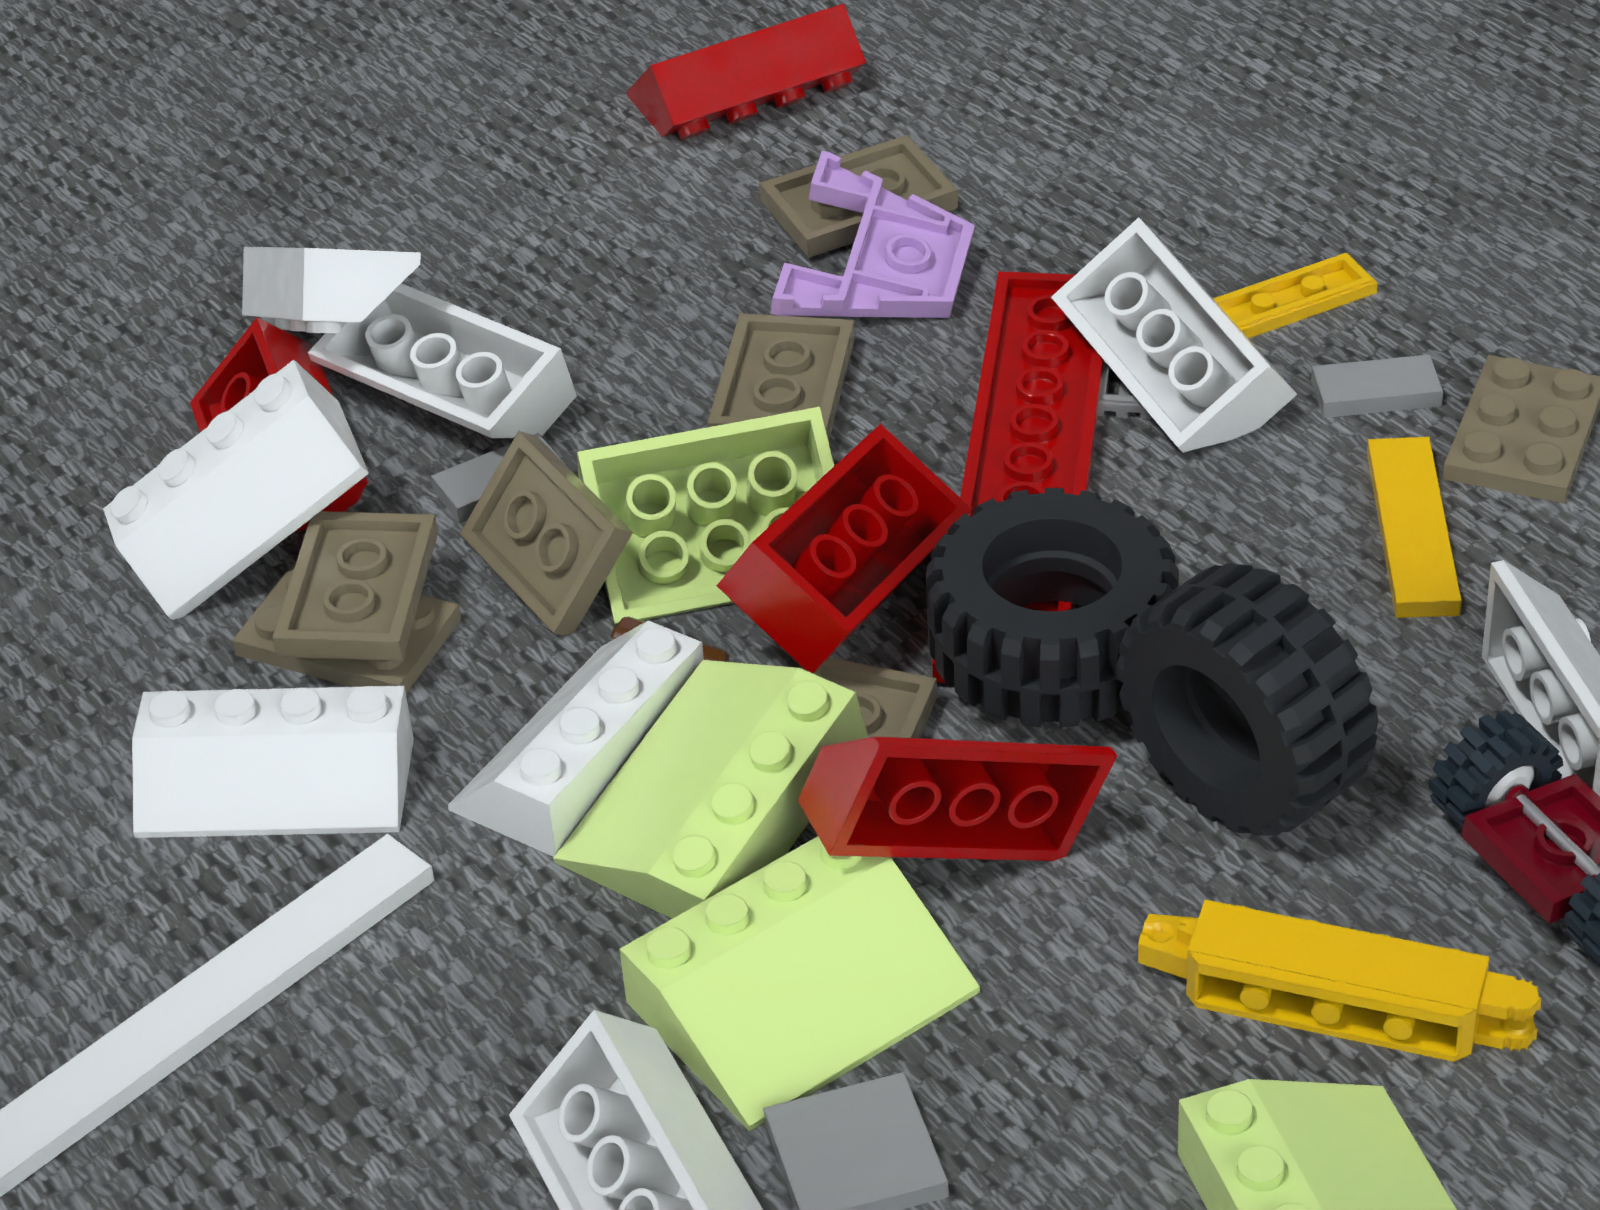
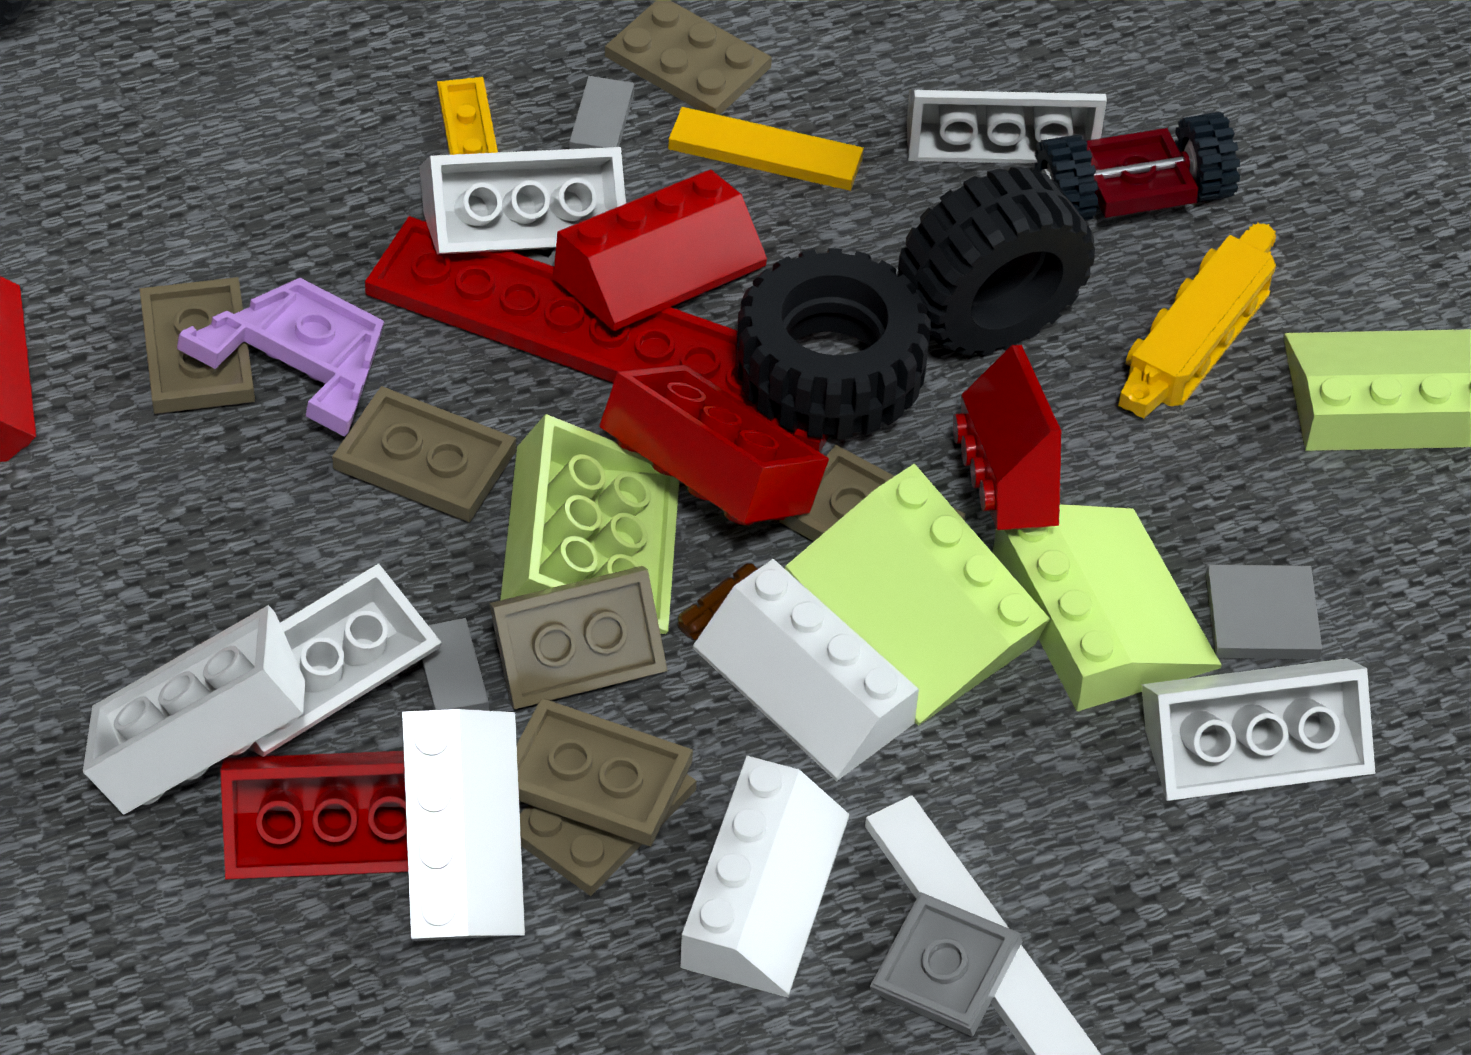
camera: 80 degrees left, 10 degrees up
(188, 943) = (946, 964): none -> light grey tile
(1158, 451) = (658, 250): none -> red slope

